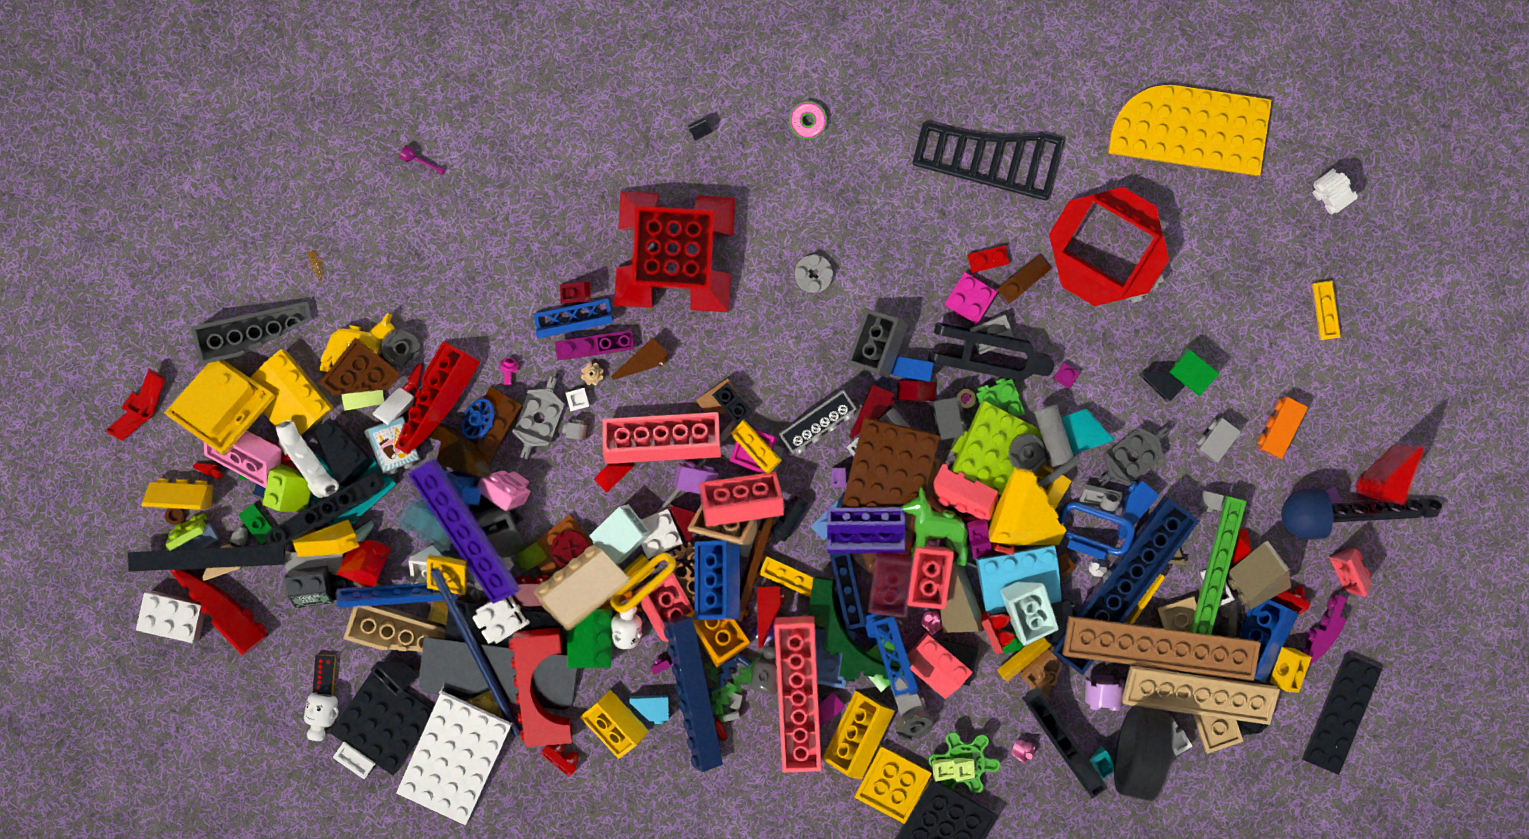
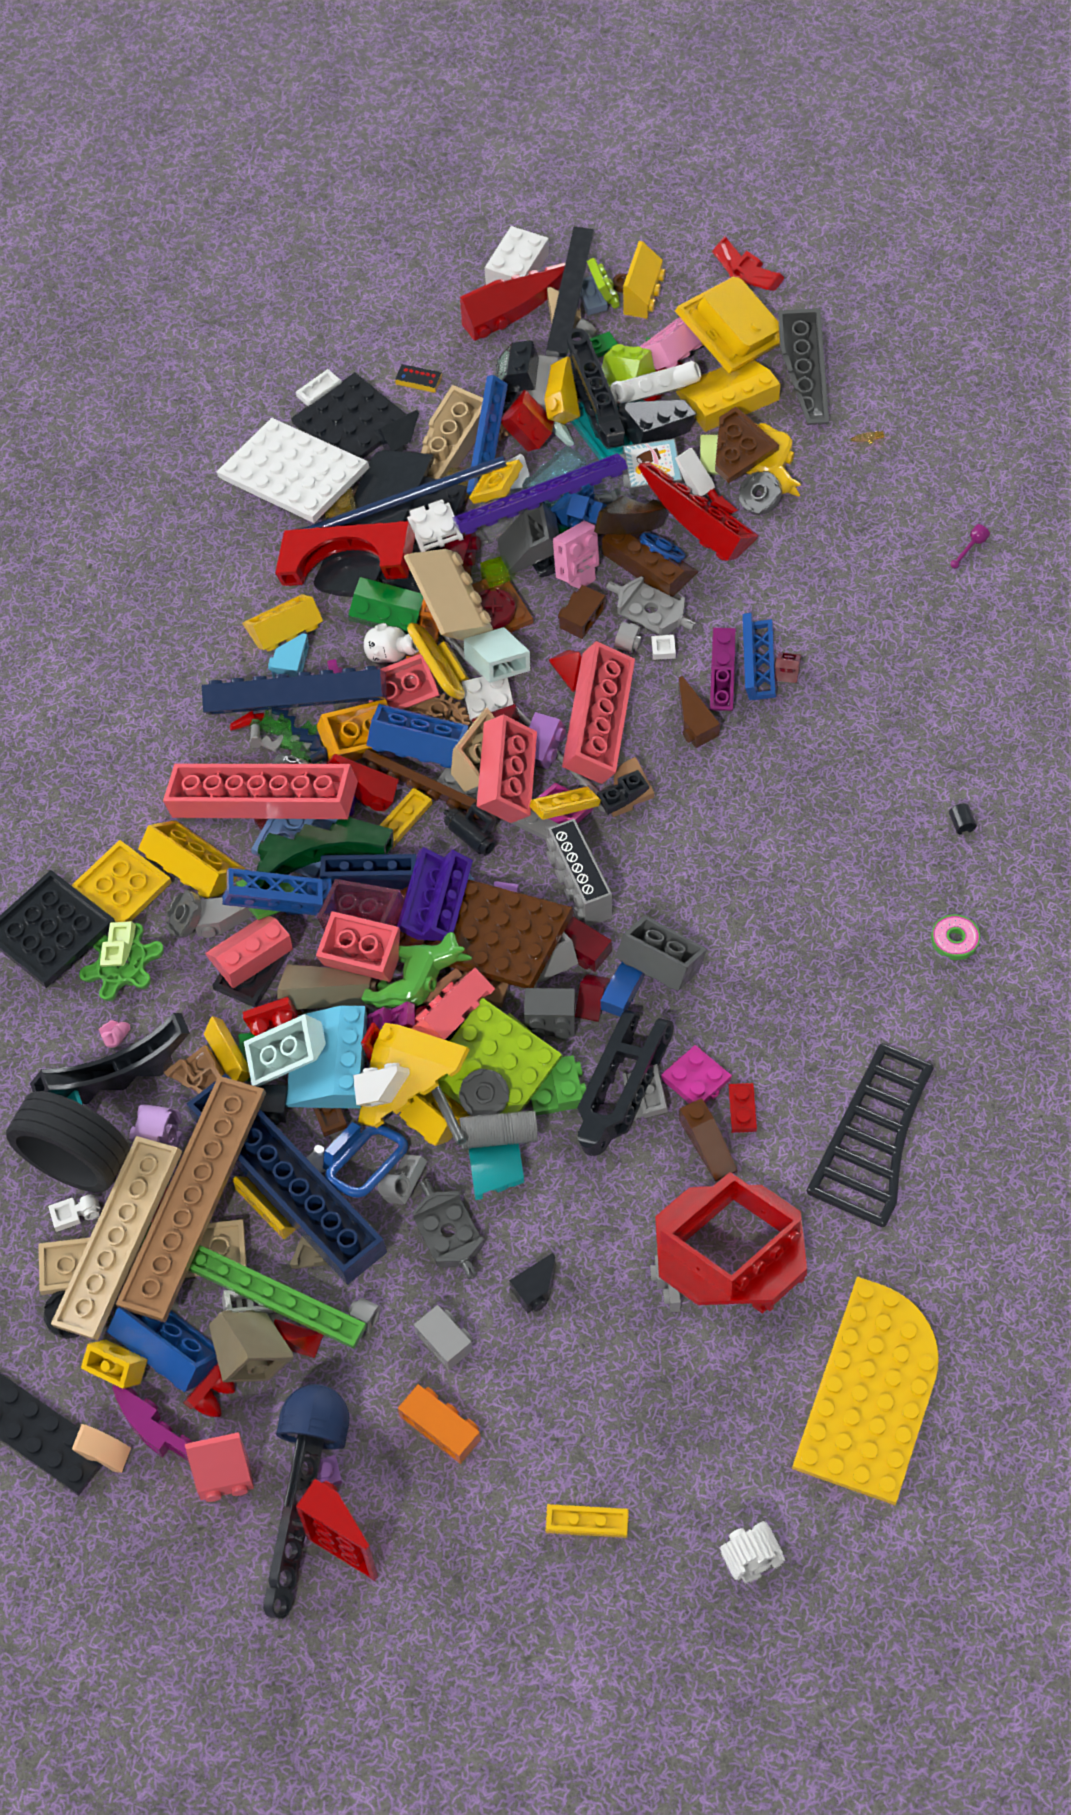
camera: 105 degrees right, 30 degrees down
(208, 469) = (664, 316): red bar -> none
(320, 713) = (377, 364): white piece -> none
(508, 366) = (715, 590): dark pink plate -> none
(555, 474) = (582, 611): none -> reddish brown brick
(566, 764) = (252, 569): red tile -> none
(592, 374) = (690, 665): tan plant -> none
(648, 270) = (822, 754): red slope -> none
(815, 263) = (766, 898): light grey plate -> none
(829, 708) = (233, 832): magenta slope -> none
(931, 622) = (302, 957): bright pink arm -> none
(966, 398) = (569, 1047): tile -> none
(1046, 533) = (379, 1086): none -> white slope
(1066, 375) = (572, 1171): magenta plate -> none
(1136, 503) = (386, 1220): blue slope -> none
(1193, 371) = (543, 1321): green slope -> none
(1233, 612) = (194, 1309): clear smoke tile -> none
(1353, 660) = (102, 1448): none -> light nougat slope

